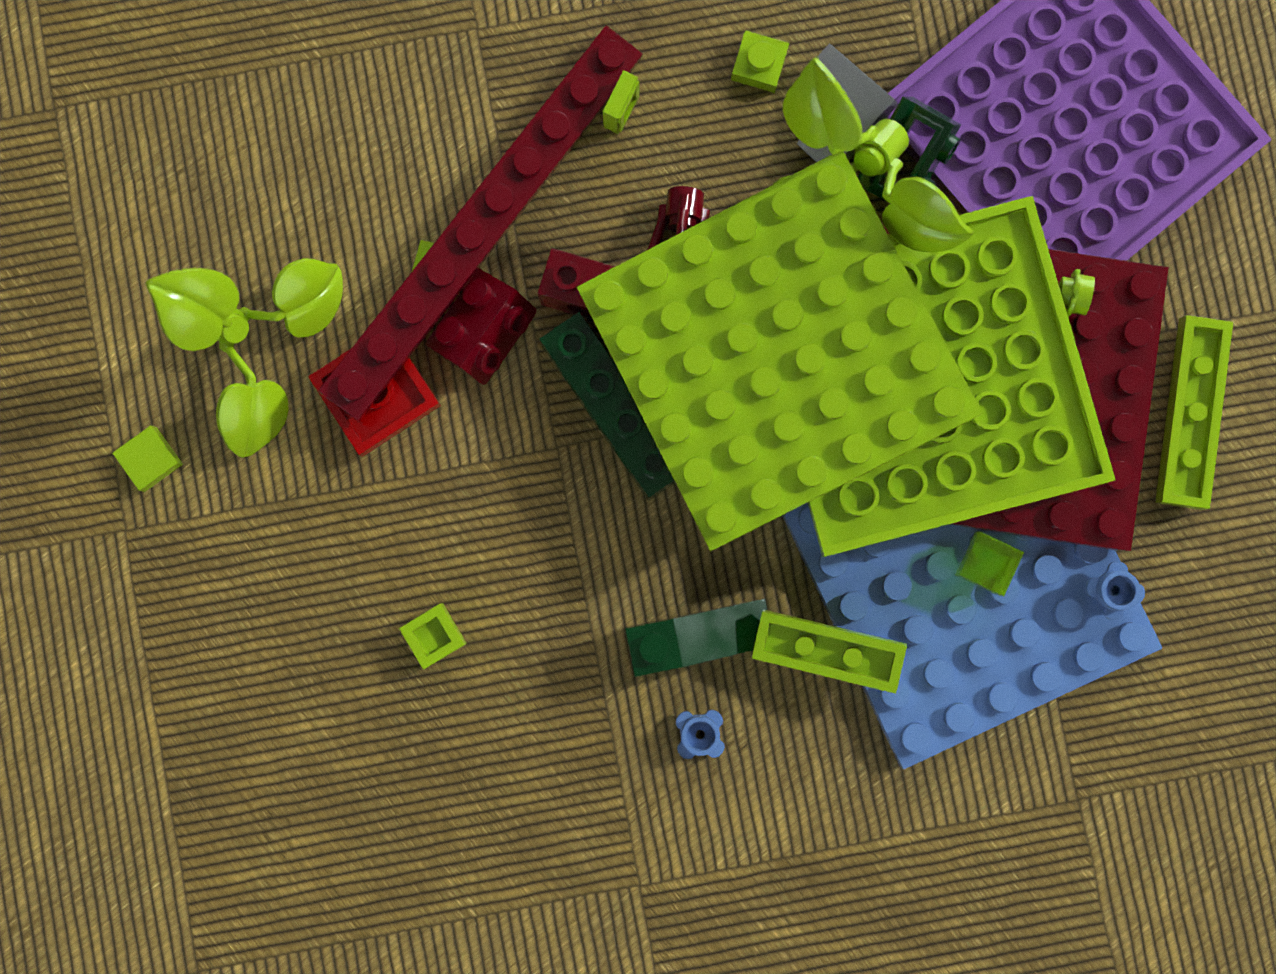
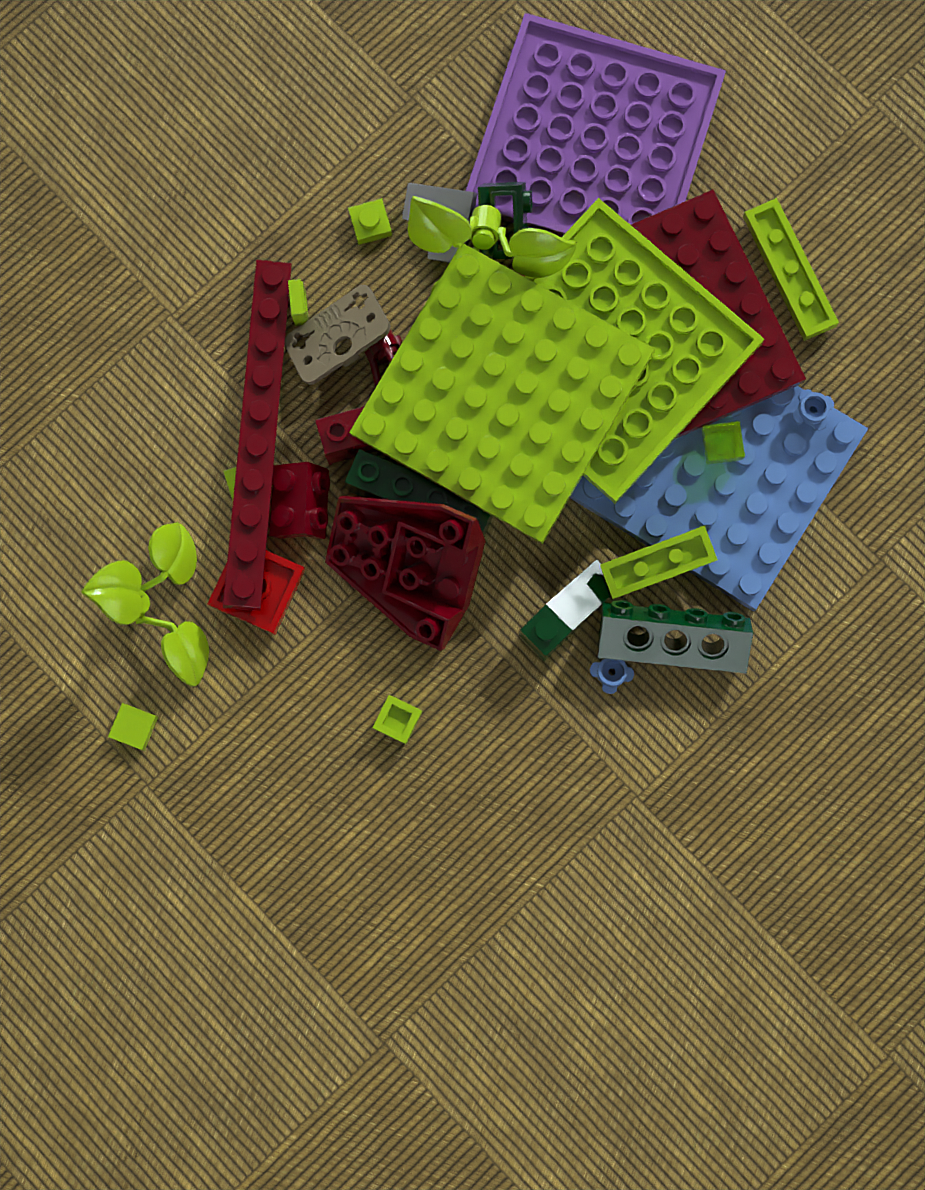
camera: 30 degrees left, 5 degrees down
(553, 473) = (408, 561): none -> dark red wedge
(640, 153) = (332, 326): none -> dark tan axle
(802, 768) = (690, 650): none -> brick
(1077, 292) = (665, 240): lime plate -> none

